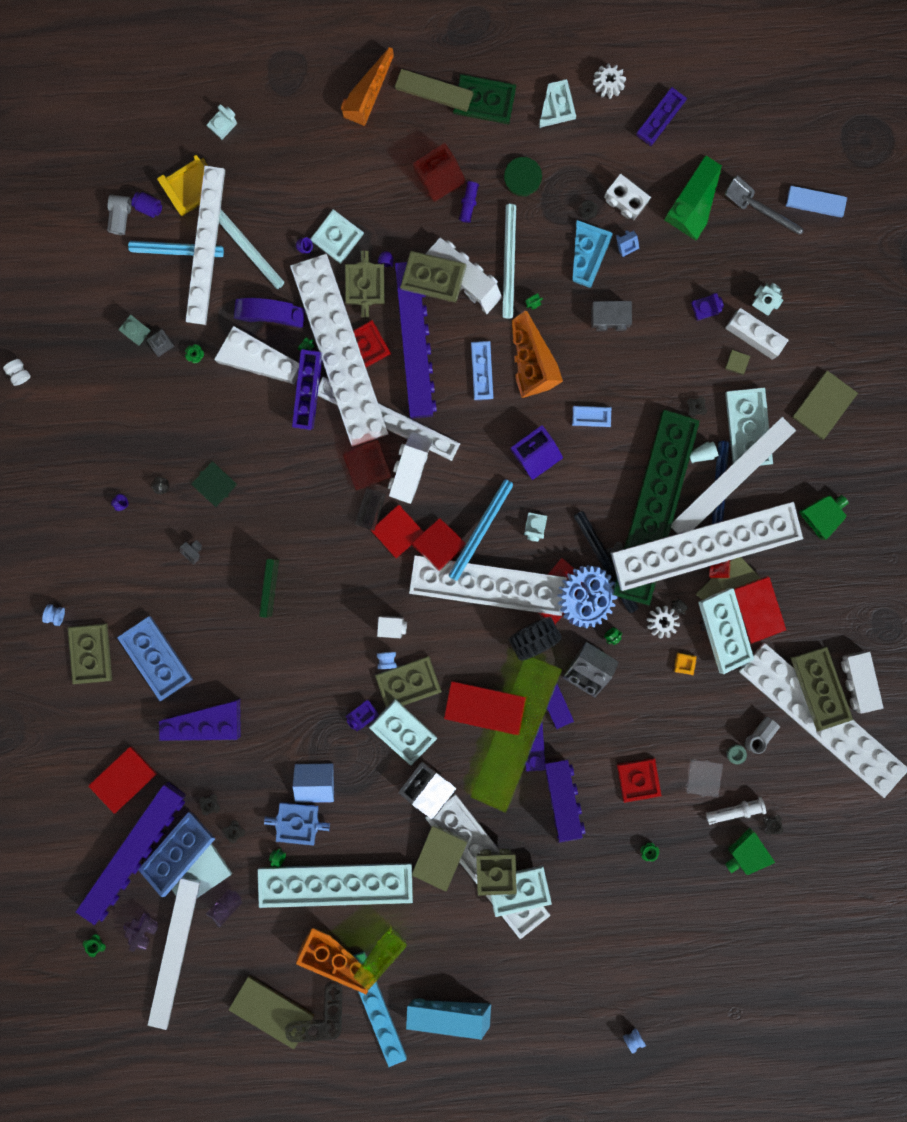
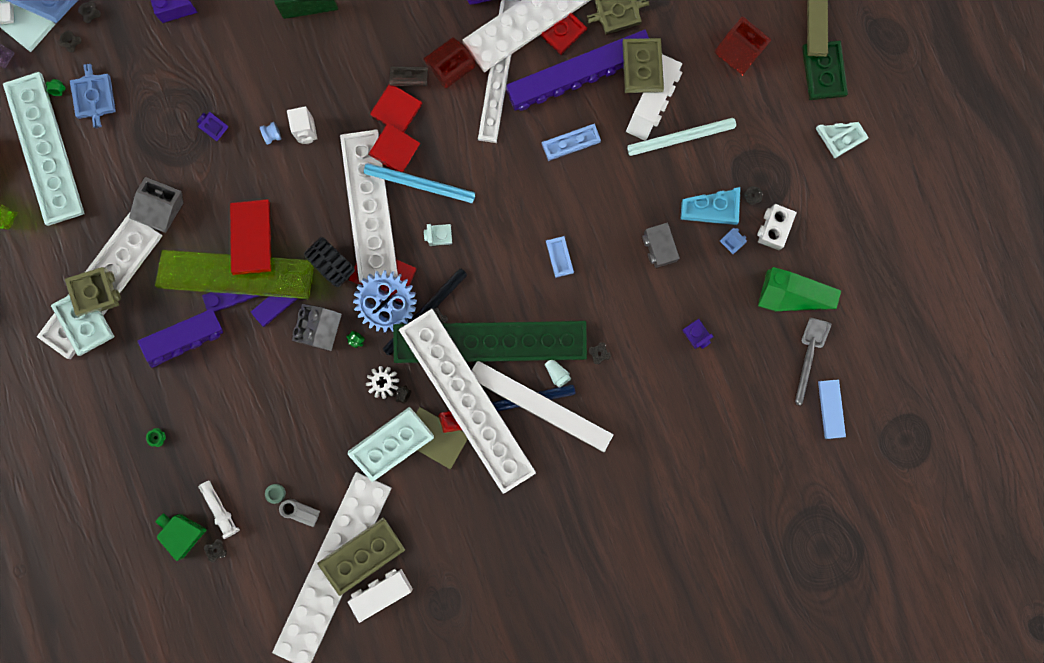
camera: 70 degrees right, 5 degrees down
(313, 783) = (136, 100): light blue slope -> none
(386, 259) = (647, 23): dark purple hinge -> none
(403, 732) = (206, 168): light aqua tile -> none
(408, 682) = (255, 160): olive tile -> none
(409, 467) = (458, 98): white wedge -> none
(440, 857) = (95, 237): olive tile -> none
(468, 202) = (724, 82): dark purple pin -> none
(523, 176) = (764, 126): dark green tile -> none
(534, 301) = (650, 170): green plate -> none
(535, 363) = (592, 190): orange wedge -> none
(536, 452) = (508, 213): dark purple slope -> none
(609, 87) = (886, 181): white gear -> none
(639, 780) = (223, 406): red tile -> none
(661, 116) = (863, 237): dark purple plate -> none
(685, 663) = (349, 417): light orange tile -> none
(704, 778) = (243, 470): clear piece -> none
(737, 362) = (654, 379): olive tile -> none
(747, 420) = (601, 405): light aqua plate -> none
(756, 334) = (686, 388): white brick -> none
(759, 609) = (421, 472): red tile -> none
(764, 304) = (723, 388): light aqua brick -> none
(824, 405) = (639, 476): olive tile -> none
(825, 515) = (532, 508): green torso -> none

